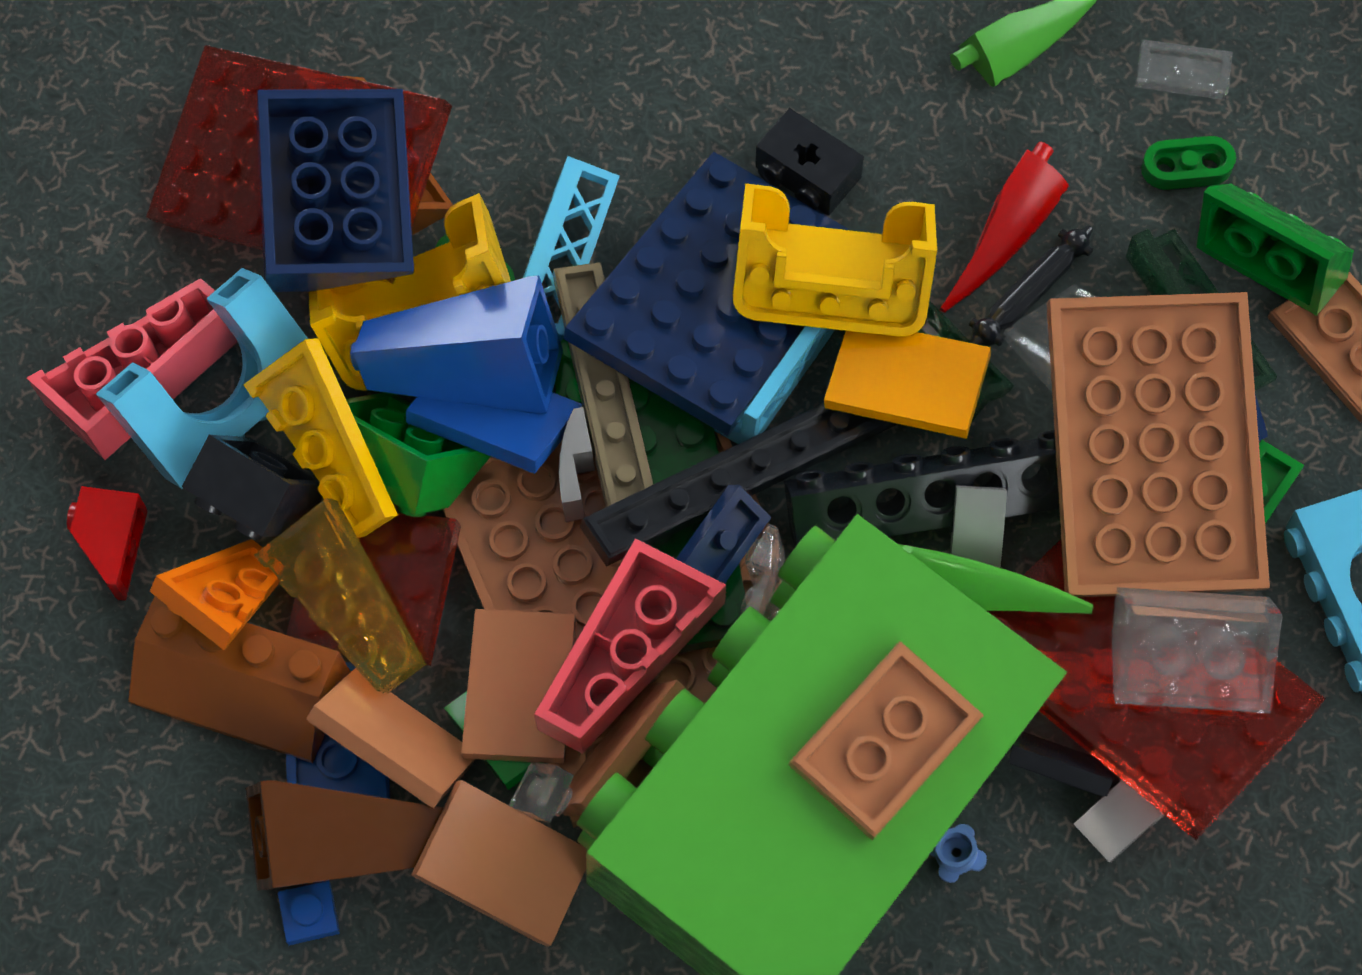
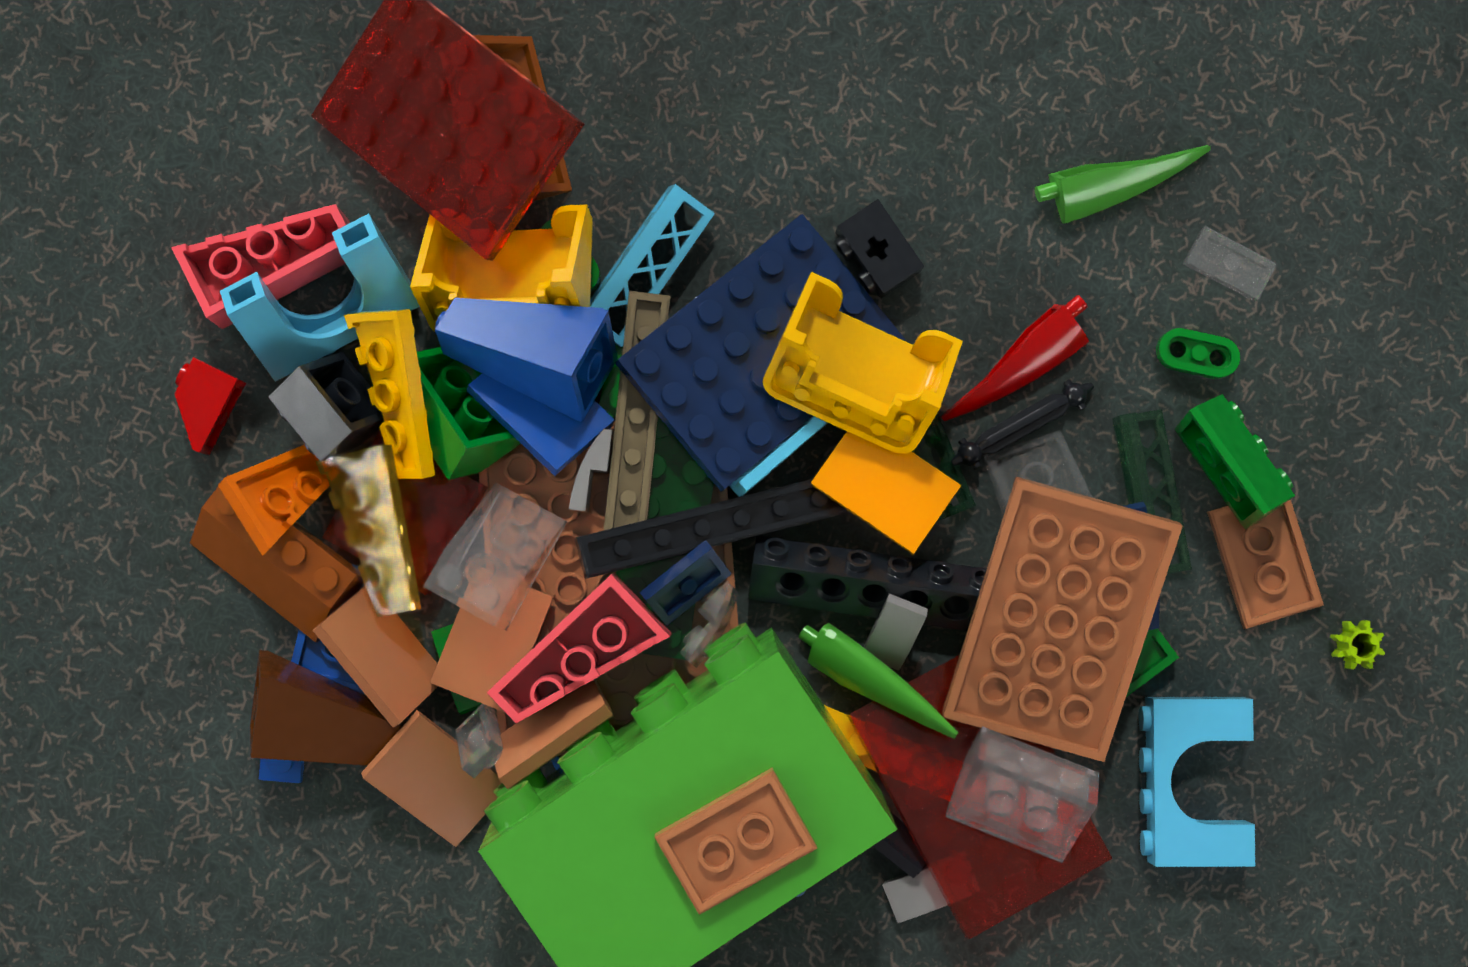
camera: 10 degrees right, 20 degrees up
(333, 187) = (462, 170): dark blue slope -> none
(494, 590) = (496, 556): none -> clear slope

